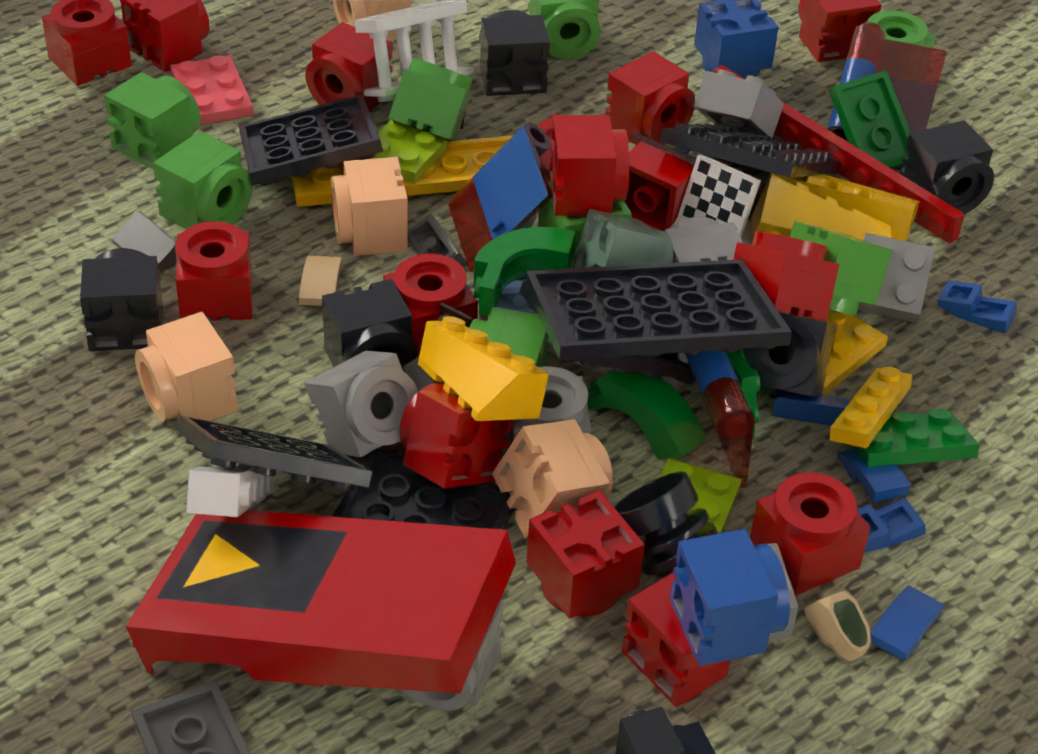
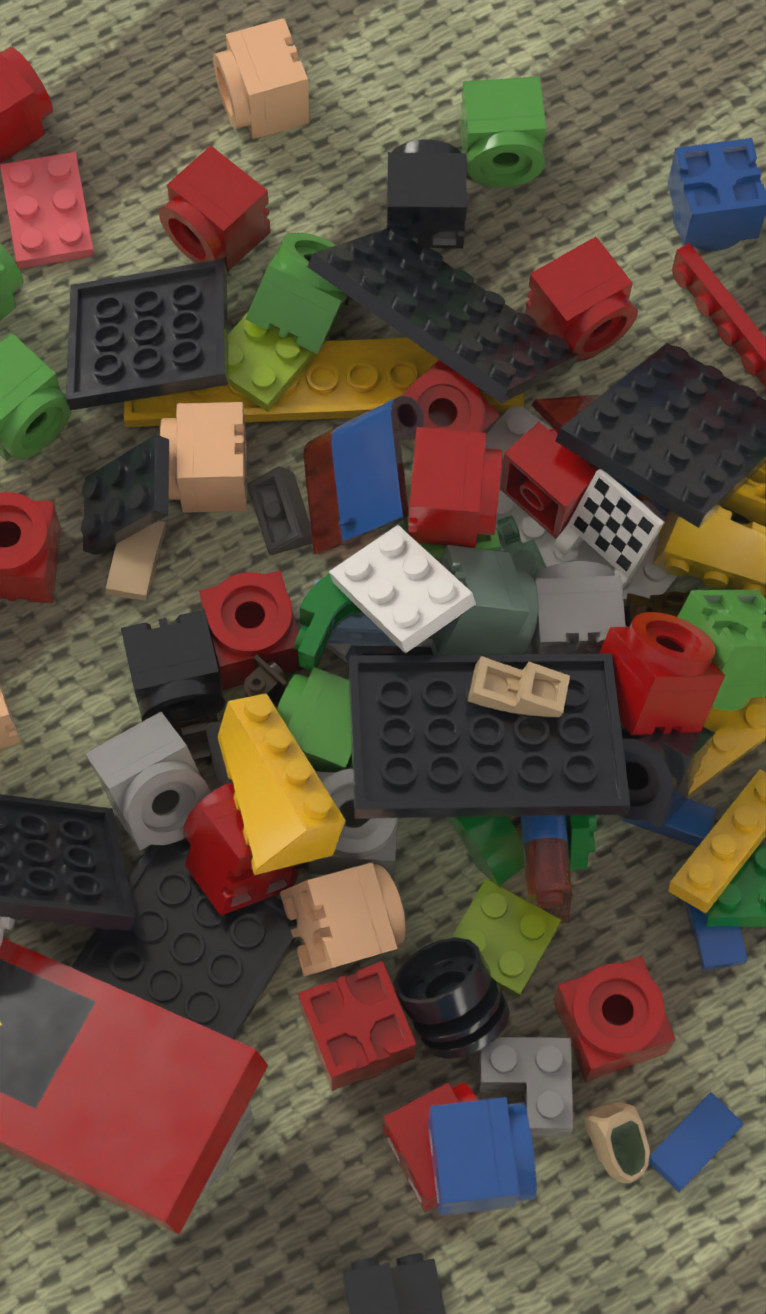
camera: 10 degrees right, 25 degrees up
(308, 228) = (126, 495): none -> black plate
(400, 22) = (281, 166): white fence -> none
(542, 92) = (445, 312): none -> black plate
(560, 227) = (402, 588): none -> white plate
(686, 275) = (525, 691): none -> tan slope
(739, 102) = (690, 327): light grey brick -> none
(891, 524) = (706, 1002): blue slope -> none

